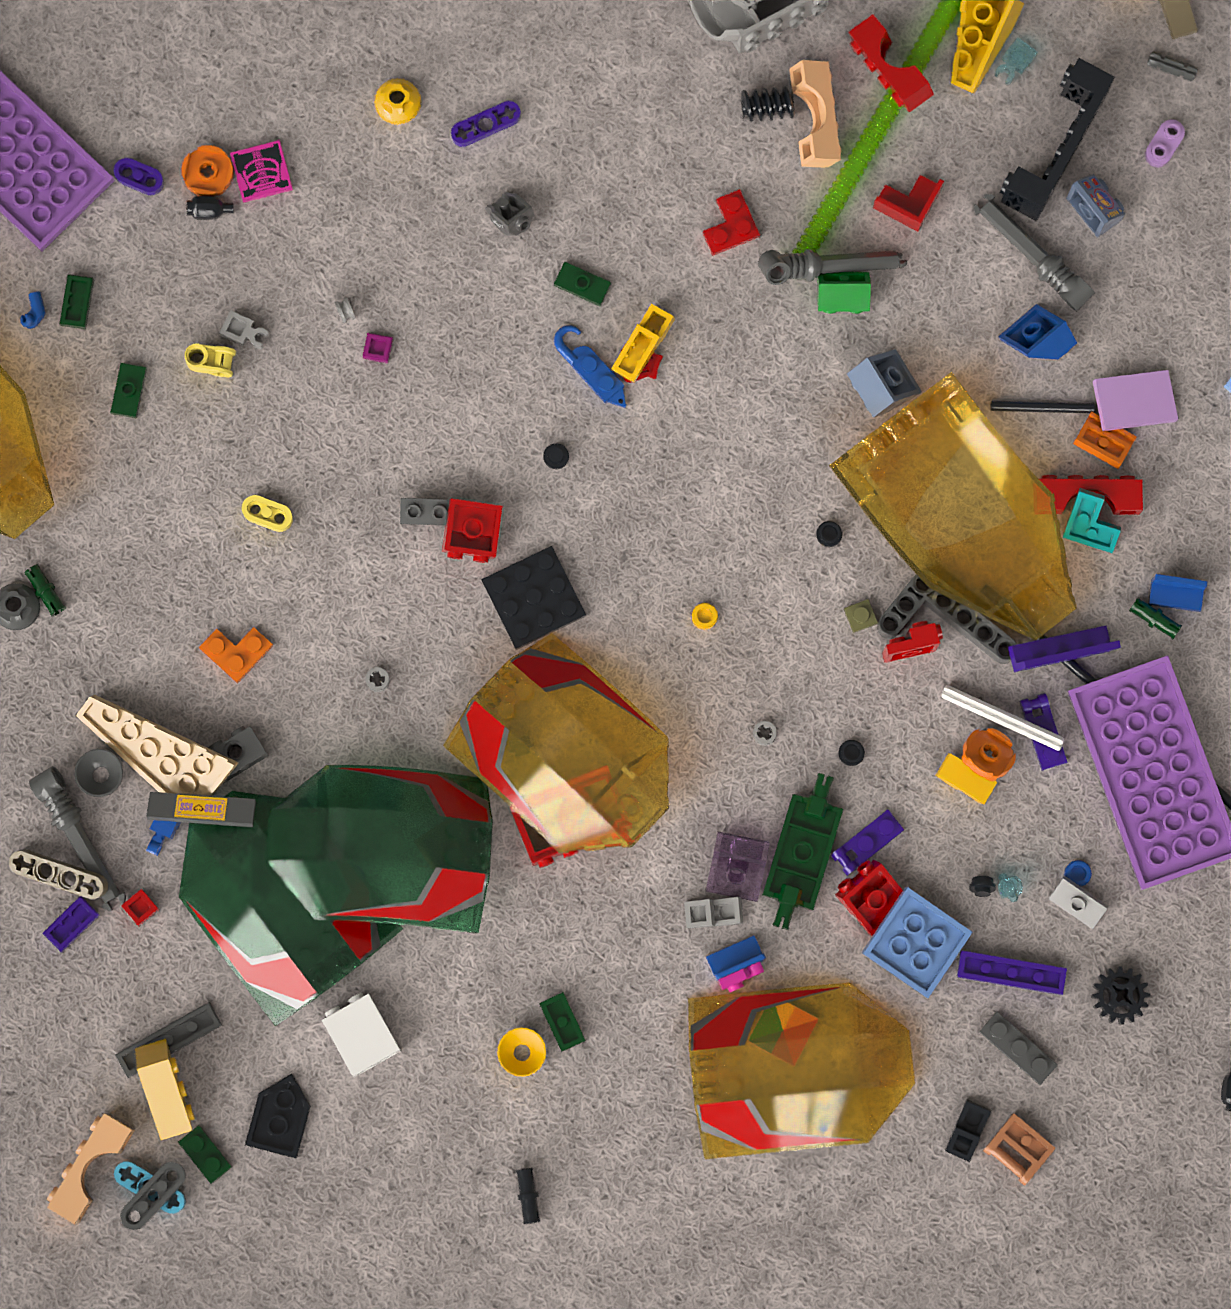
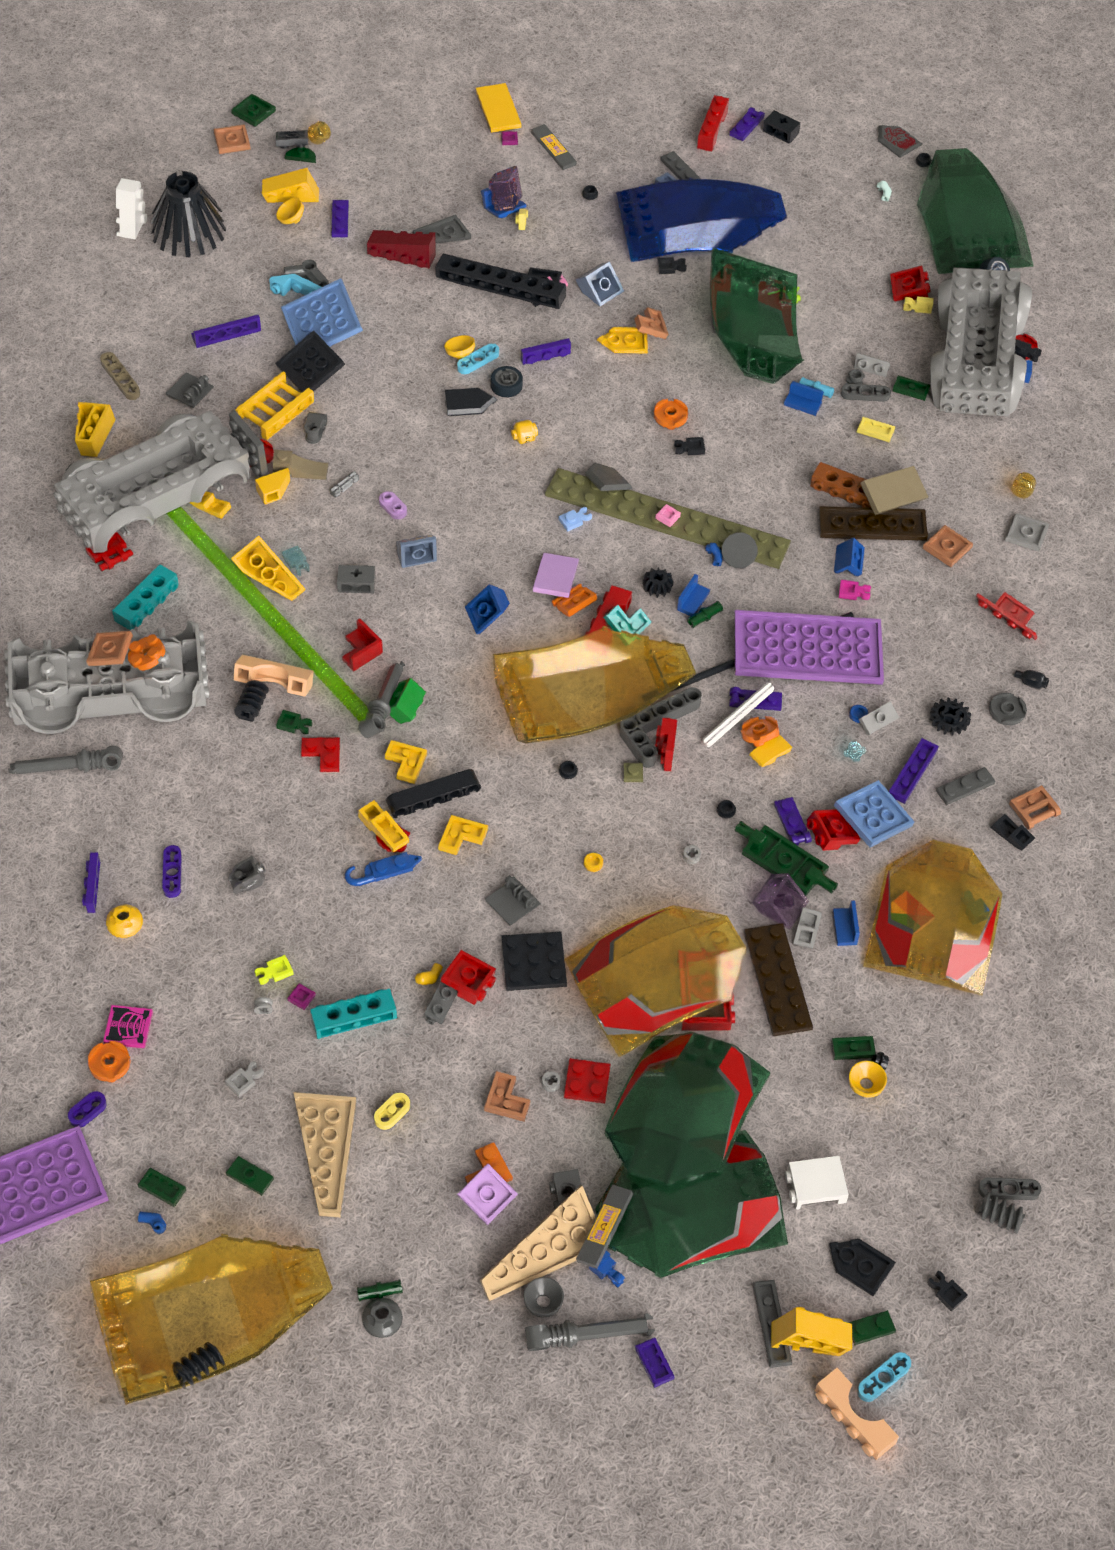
camera: 70 degrees left, 25 degrees down
(57, 877) = (609, 1353): beam -> none
(140, 907) = (660, 1306): red plate -> none
(141, 1201) = (890, 1361): dark grey plate -> none
(201, 662) = (487, 1194): none -> lavender tile
(203, 456) = (327, 1136): none -> tan wing
(207, 207) = (136, 1071): black plant -> none
(212, 359) = (257, 1106): light yellow piece -> none
(278, 1232) = (948, 1293): none -> black plate
(328, 631) = (502, 1102): none -> nougat plate
(394, 451) = (346, 1021): none -> teal brick
(395, 721) = (587, 1081): none -> red plate
(399, 304) = (276, 969): none -> neon yellow plate
(402, 1265) = (1002, 1213): none -> dark grey piece
(429, 40) = (91, 882): none -> dark purple plate
(431, 1249) = (1025, 1195): none -> dark grey beam
(460, 483) = (429, 977): none -> yellow arm
(528, 1195) = (974, 1114): black pin -> none
(555, 1060) = (881, 1059): none -> black plate
(556, 456) = (437, 911): black plate -> none
(582, 284) = (320, 853): dark green plate -> none
(607, 540) = (512, 901): none -> dark grey hinge
(625, 899) = (778, 979): none -> dark brown plate
(679, 433) = (459, 830): none -> yellow plate
(723, 382) = (433, 792): none -> black beam
(734, 980) = (863, 928): dark pink plate -> none
(758, 165) = (291, 721): none -> dark green plate
(764, 335) = (410, 759): none -> yellow plate
(883, 382) = (479, 703): sand blue slope -> none
(906, 83) = (284, 613): red arch -> none
(982, 886) = (848, 766): black plate -> none
(1017, 134) = (356, 579): none -> dark grey brick
(1049, 266) = (446, 587): dark grey piece -> none
(1050, 407) = (536, 625): black bar -> none
(1061, 648) = (706, 665): dark purple fence -> none
(1086, 87) = (341, 523): black plate -> none
(1162, 1067) = (1007, 709): none -> dark grey tile
(1172, 532) = (657, 582): none -> black gear

